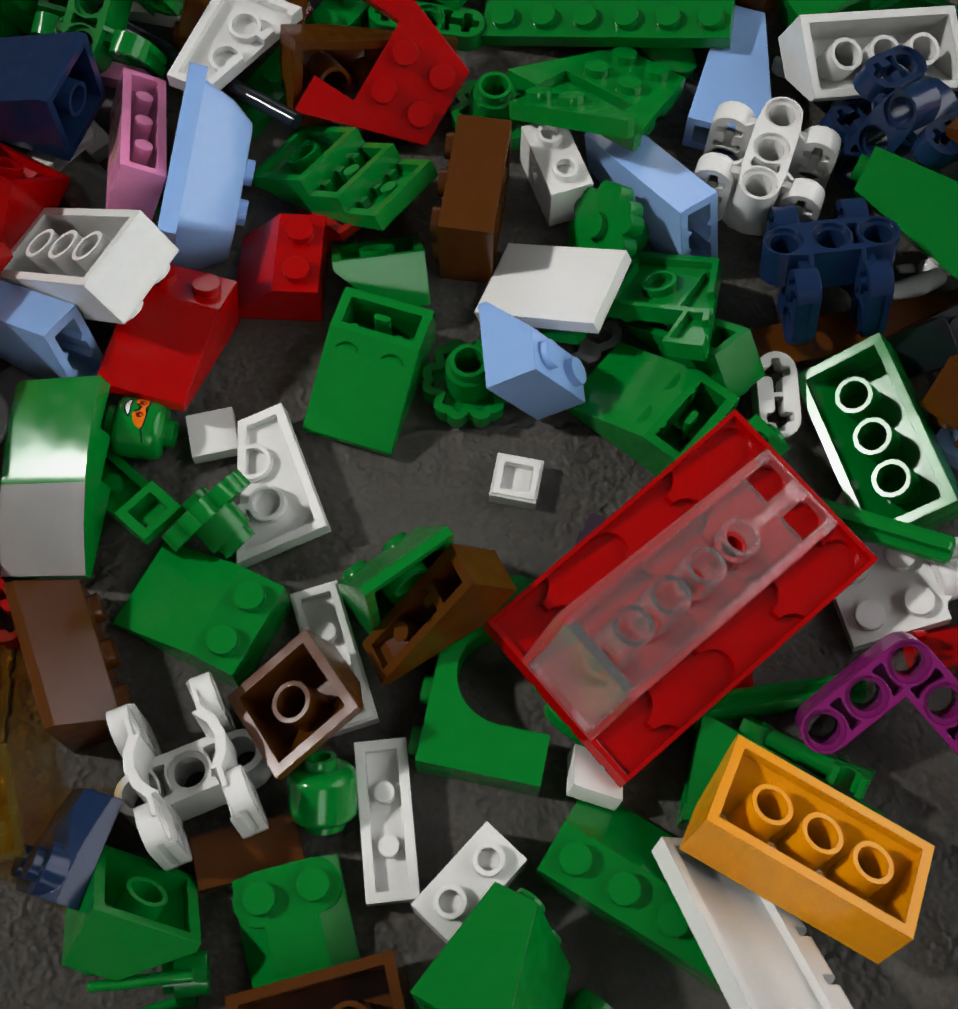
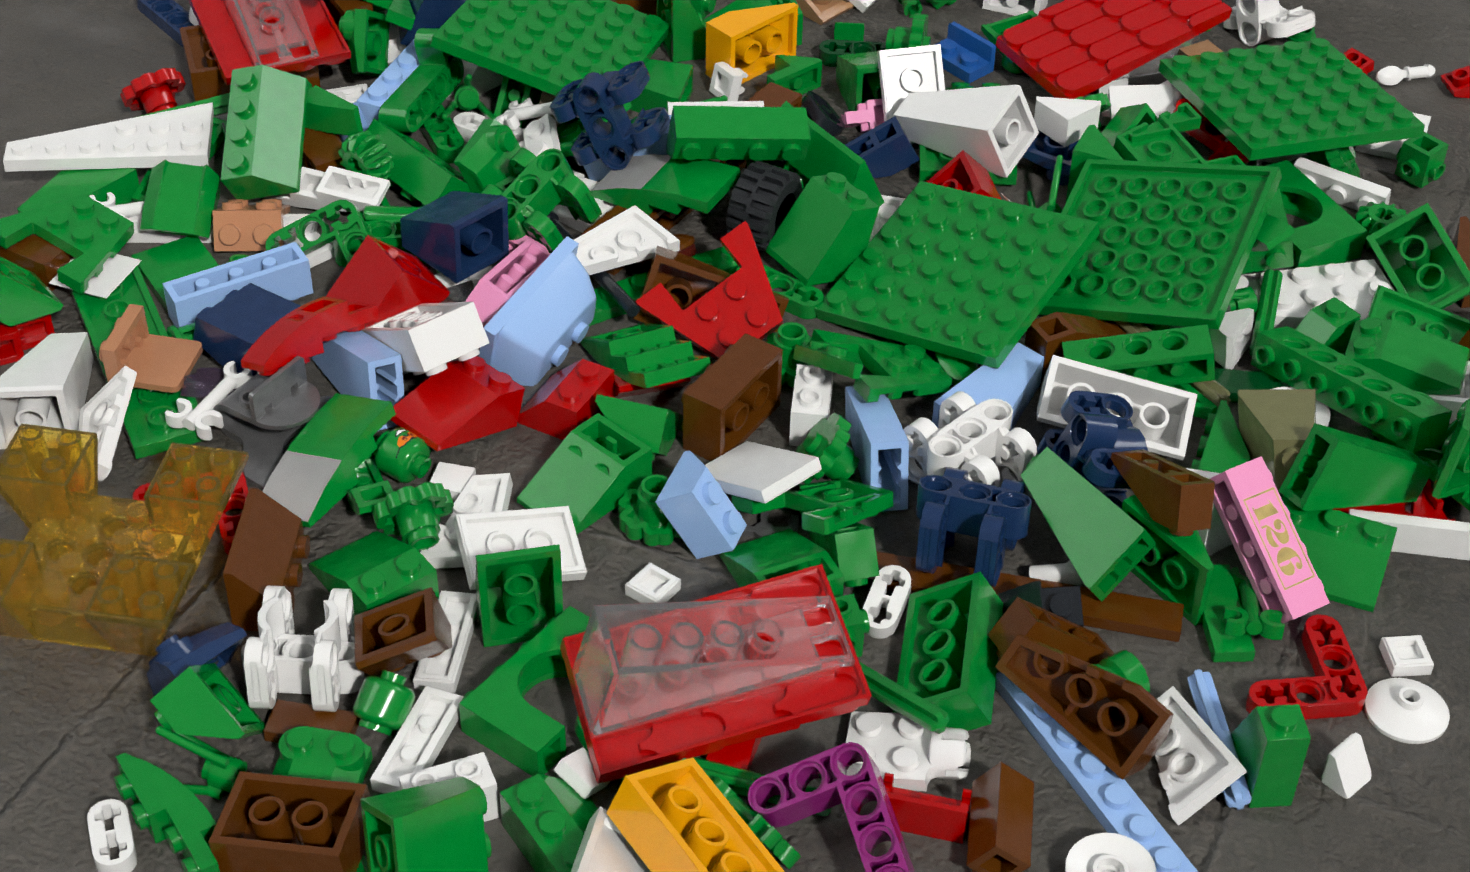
camera: 25 degrees right, 25 degrees down
(350, 503) = (519, 530): none -> white tile
(442, 607) = (536, 615): reddish brown slope -> none

